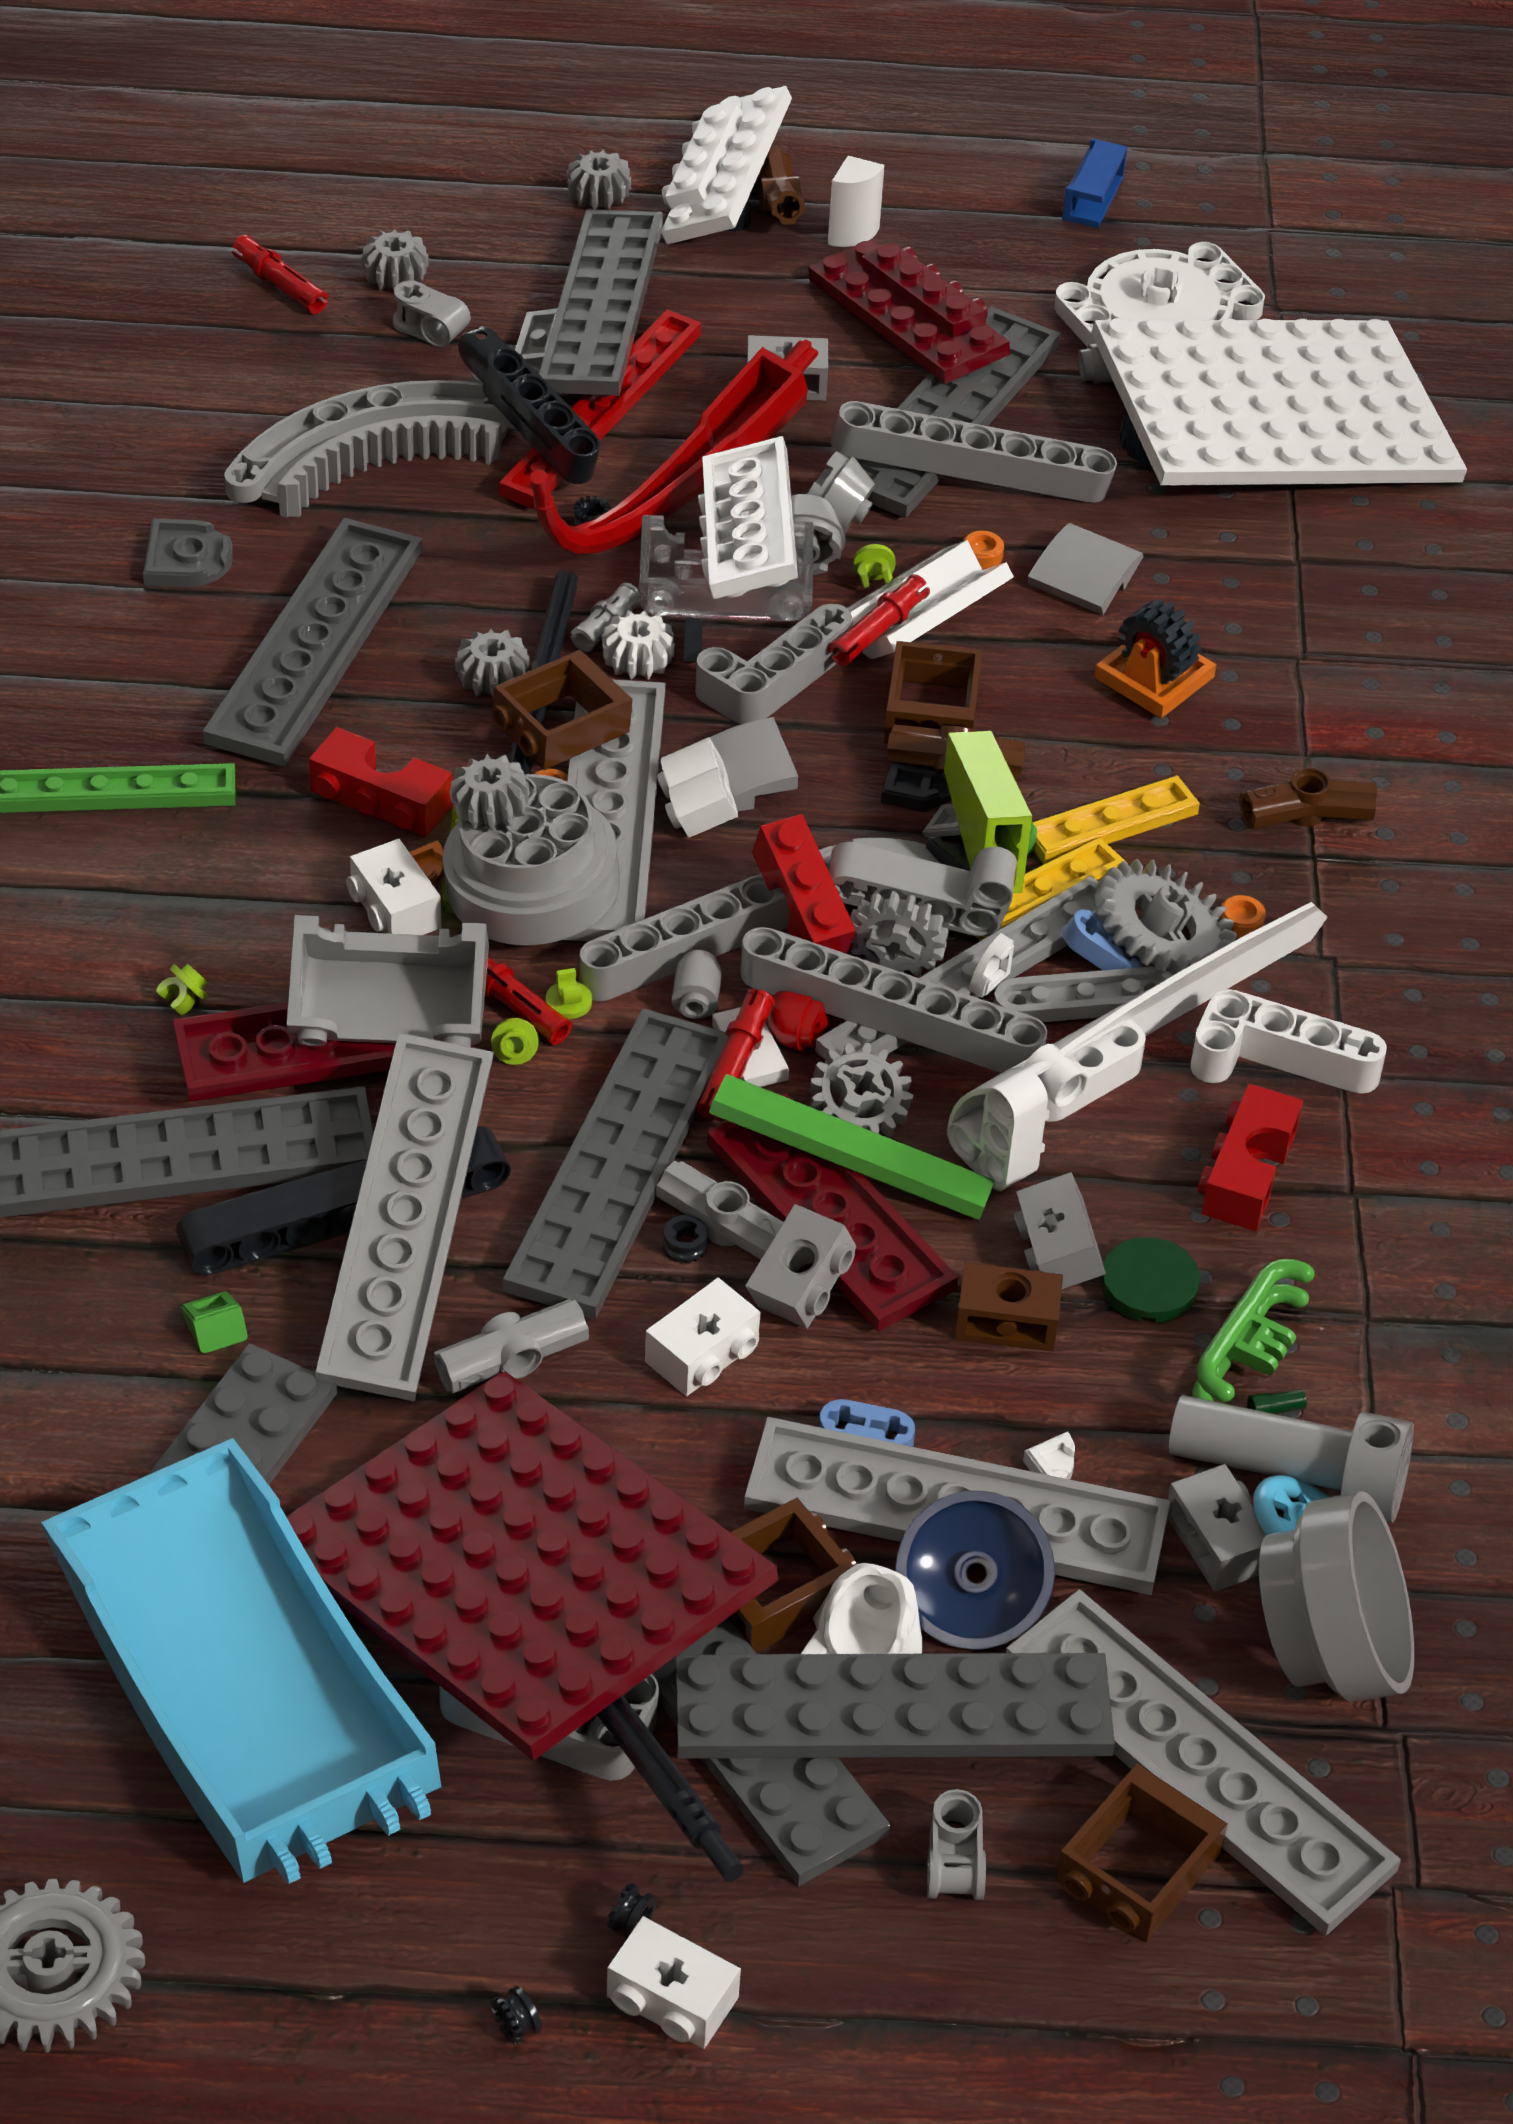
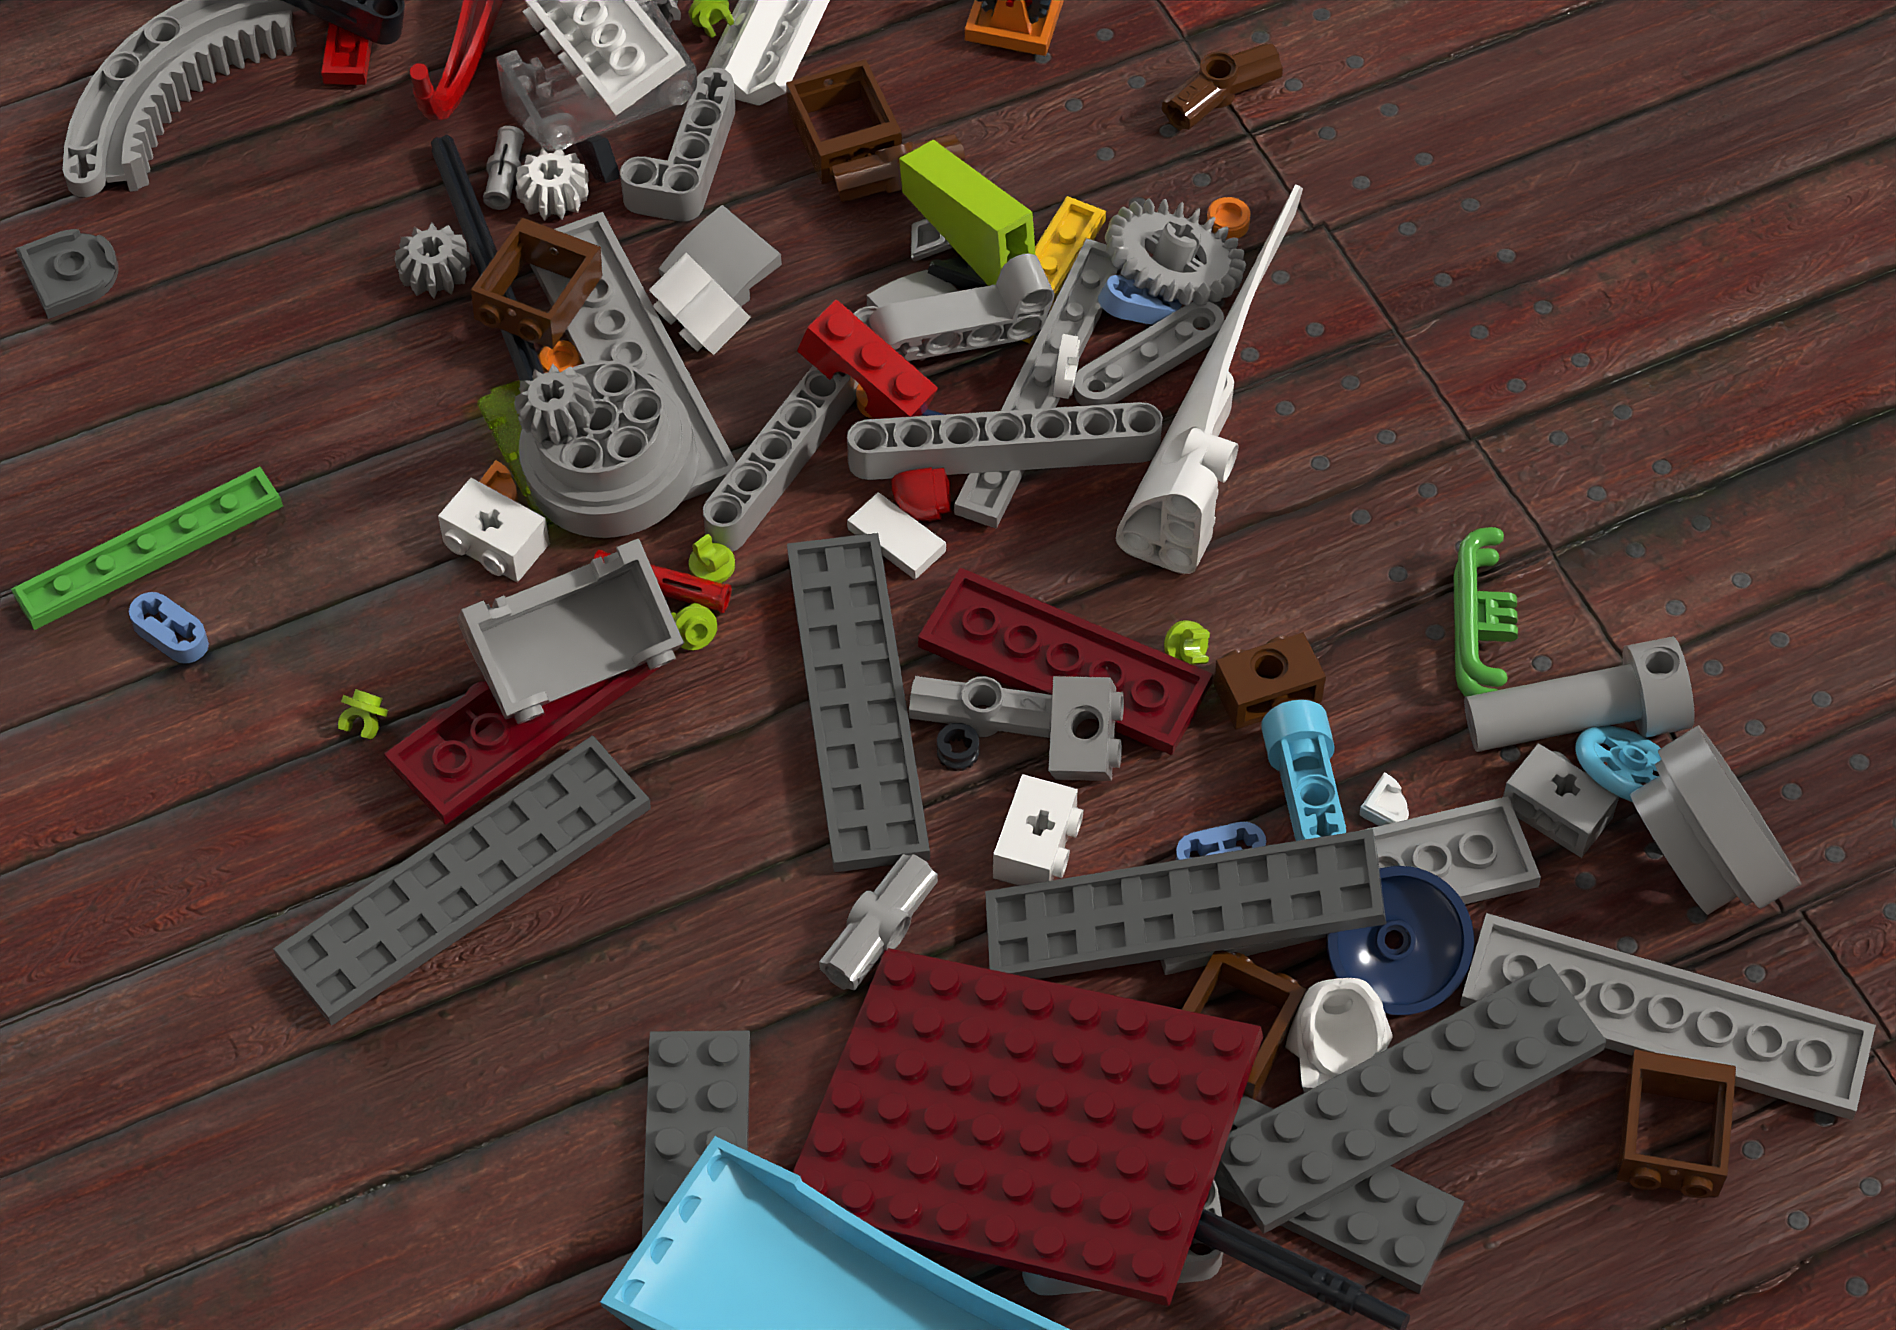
camera: 25 degrees left, 10 degrees up
(79, 853) = (173, 620): none -> medium blue beam
(215, 1321) = (601, 1023): bright green slope -> none
(304, 1211) = (641, 855): black beam -> none
(312, 642) = (252, 310): dark grey plate -> none
(404, 1218) = (719, 847): light grey plate -> none
(408, 798) = (443, 432): red arch -> none
(589, 508) = (427, 58): black bush -> none
(697, 985) = (817, 498): light grey brick -> none
(743, 1038) = (895, 533): red pin -> none
(792, 1448) = (1186, 906): none -> dark grey plate
(852, 1146) = (1051, 594): bright green tile -> none
(862, 1072) = (1030, 535): light grey gear -> none
(890, 610) = (758, 53): red pin -> none
(898, 933) = (969, 371): light grey gear -> none
(915, 788) = (879, 217): black tile -> none
(954, 1243) = (1187, 642): none -> lime plate
(956, 1855) = (1534, 1206): light grey piece -> none
(992, 1375) = (1301, 749): none -> medium azure beam
(1059, 1231) = (1261, 569): light grey brick -> none
(1115, 817) = (1071, 165): yellow tile -> none
(1150, 1279) = (1362, 597): dark green tile -> none
(1259, 1129) = (1381, 476): red arch -> none
(1278, 1402) = (1524, 668): dark green piece -> none
(1284, 1039) = (1339, 321): white beam -> none

